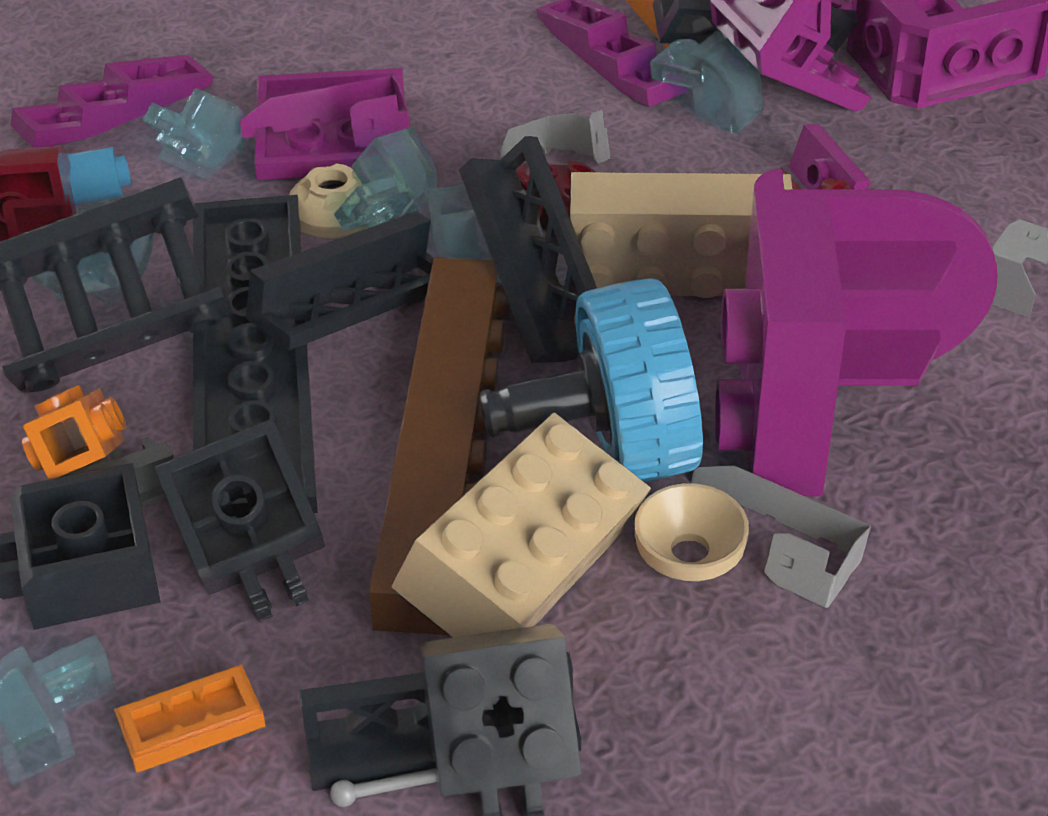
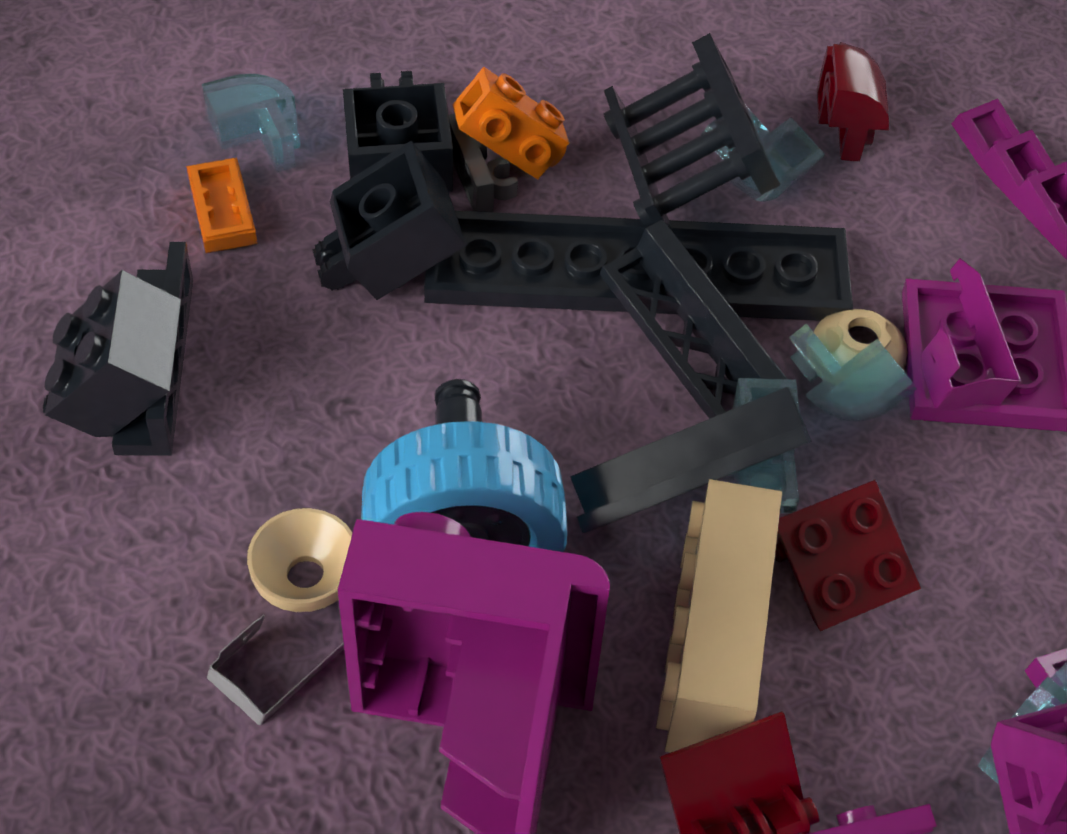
camera: 95 degrees right, 10 degrees up
(98, 175) = (900, 160): dark azure brick -> none
(201, 136) = (948, 233): clear light blue brick -> none
(440, 423) = (541, 396): reddish brown brick -> none
(521, 534) = (294, 398): tan brick -> none
(564, 133) = (925, 517): light grey piece -> none

